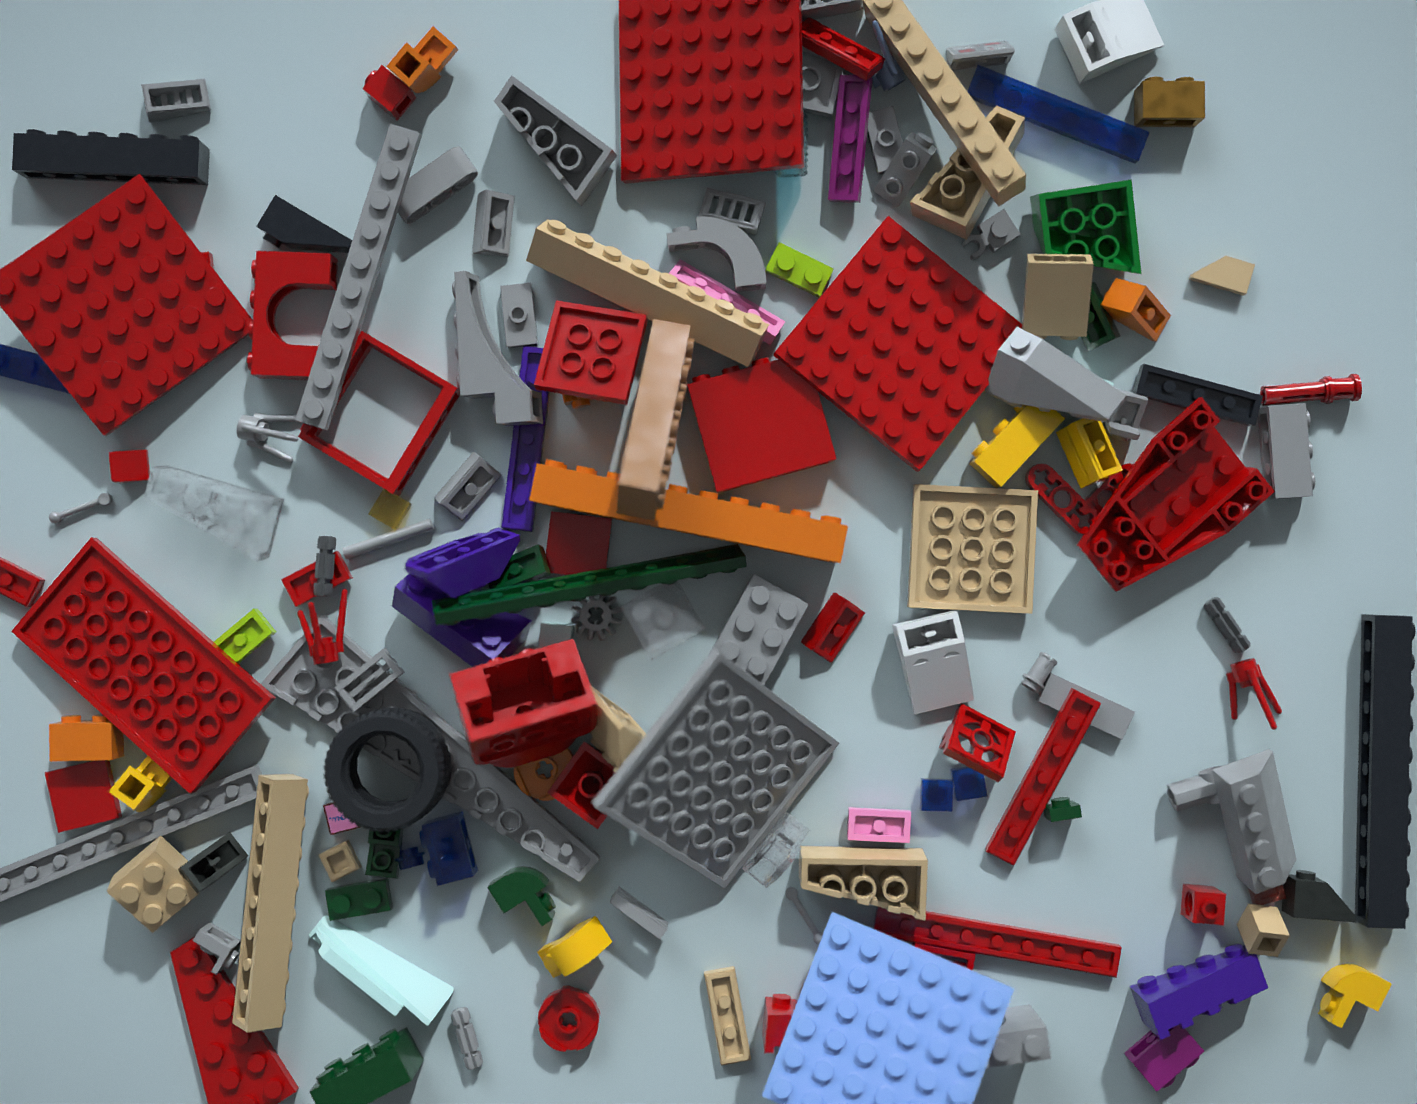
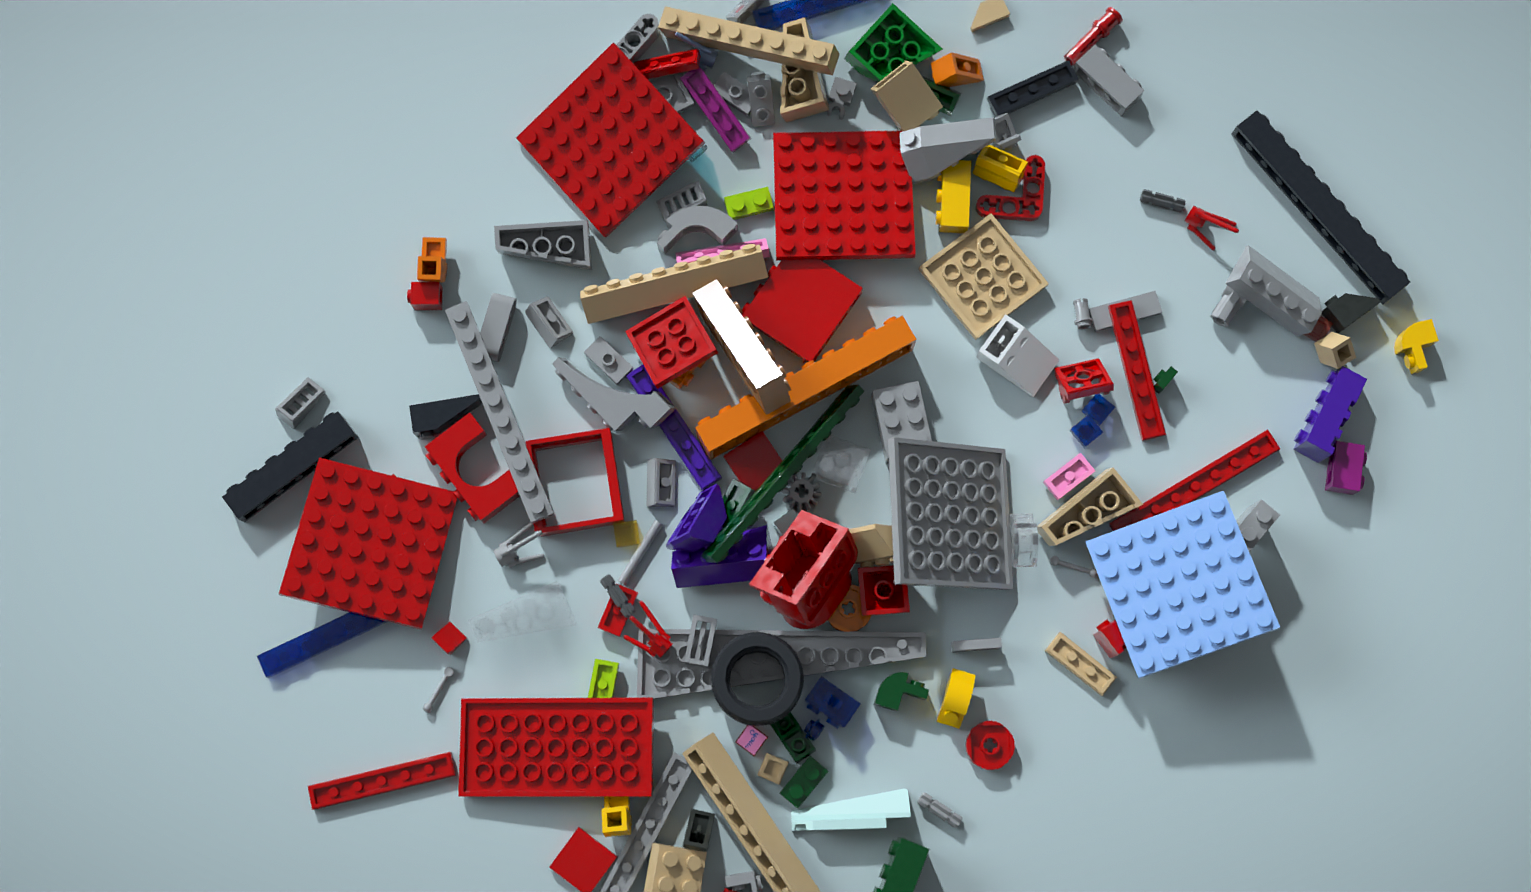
camera: 45 degrees left, 10 degrees down
(85, 739) = (558, 823): orange brick -> none
(832, 627) = (943, 387): red slope -> none
(1173, 500) = (1070, 156): red wedge -> none
(1203, 904) = (1289, 364): red brick -> none

